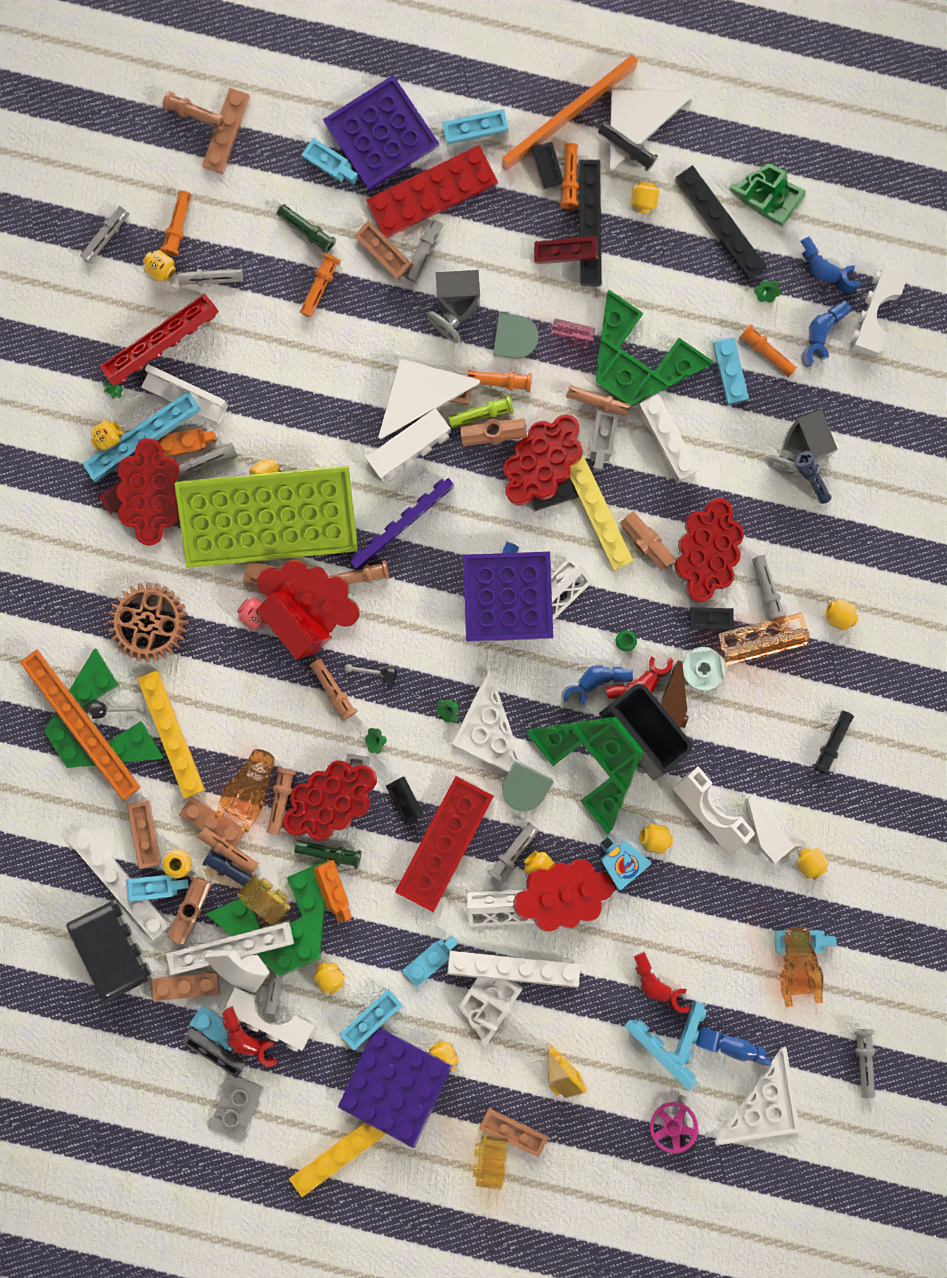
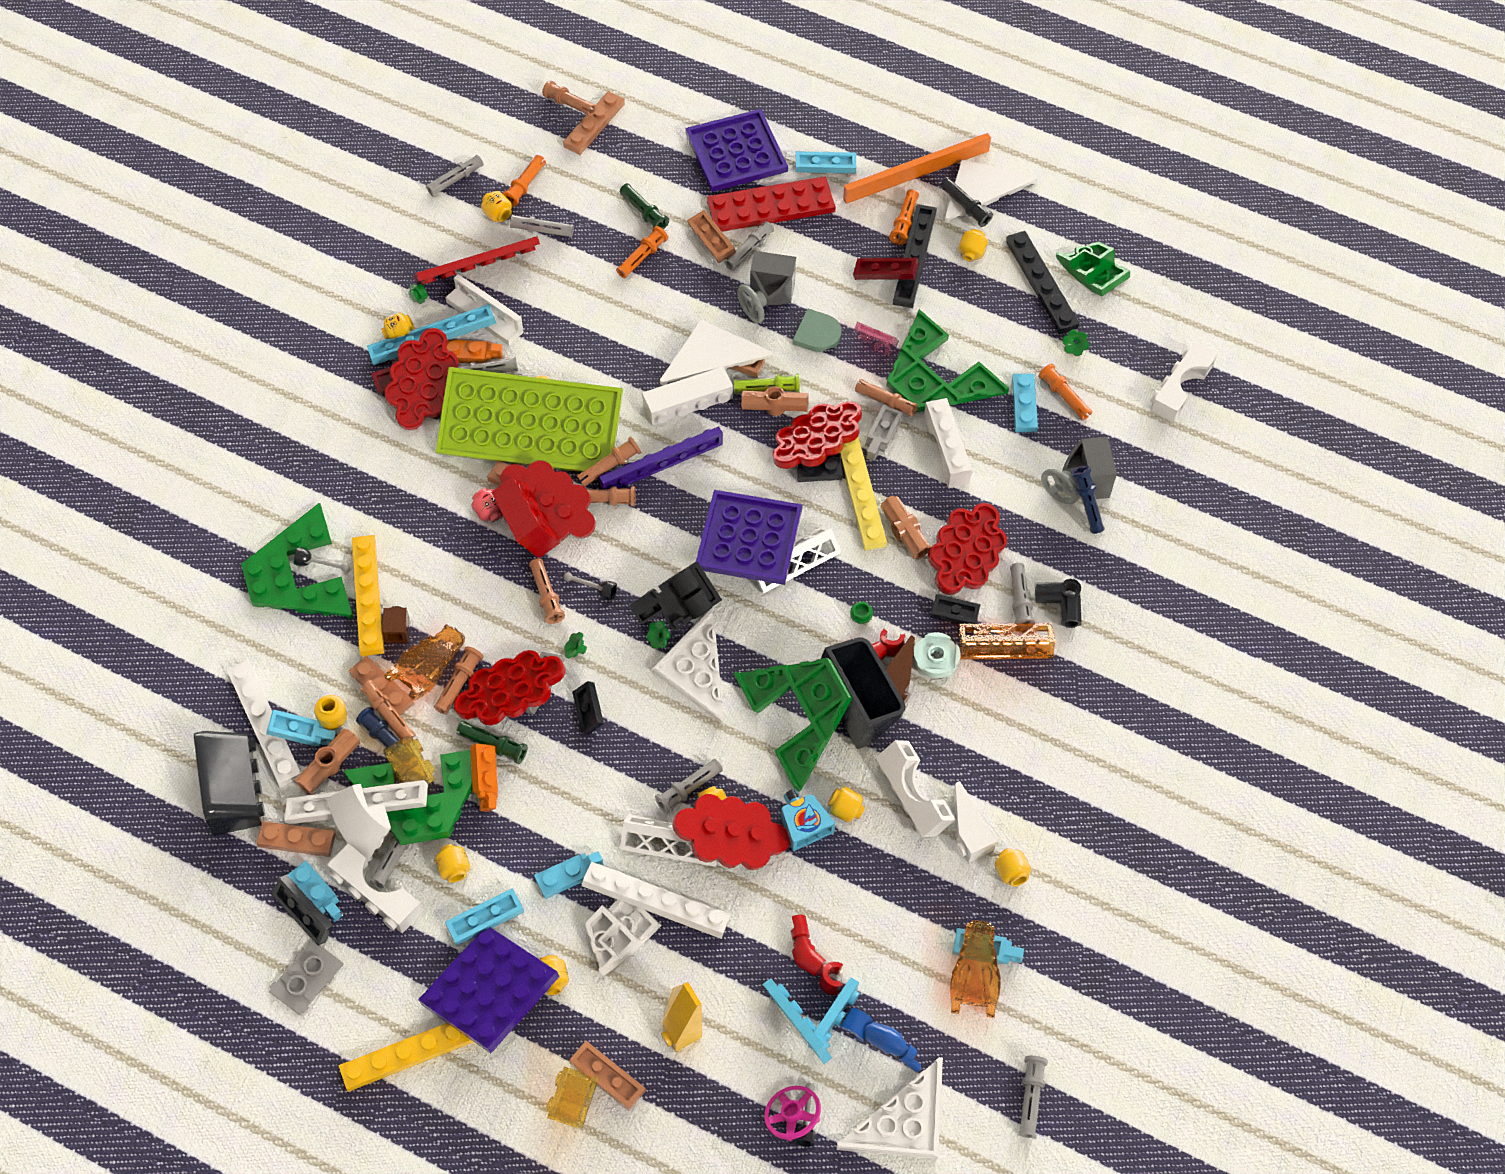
camera: 15 degrees right, 25 degrees down
(80, 724) = (280, 564): orange tile -> none
(144, 834) = (306, 680): nougat plate -> none
(147, 593) = (380, 490): nougat gear -> none
(206, 759) = (395, 625): none -> reddish brown brick
(243, 1043) = (337, 901): red piece -> none
(329, 161) = (682, 162): medium azure hinge -> none
(362, 535) = (618, 456): none -> nougat pin
(444, 844) = (616, 760): red plate -> none
(459, 675) = (681, 598): none -> black plate
(509, 380) = (802, 364): orange pin -> none
(525, 787) = (718, 723): sand green tile -> none
(547, 165) = (885, 203): black plate -> none
(597, 676) = (815, 638): blue piece -> none
(814, 589) = (1056, 593): none -> black piece
(819, 330) = (1121, 383): blue piece -> none
(828, 272) = (1141, 340): blue piece -> none
(829, 751) = (1055, 762): black pin -> none
(841, 615) = (1093, 634): yellow head -> none

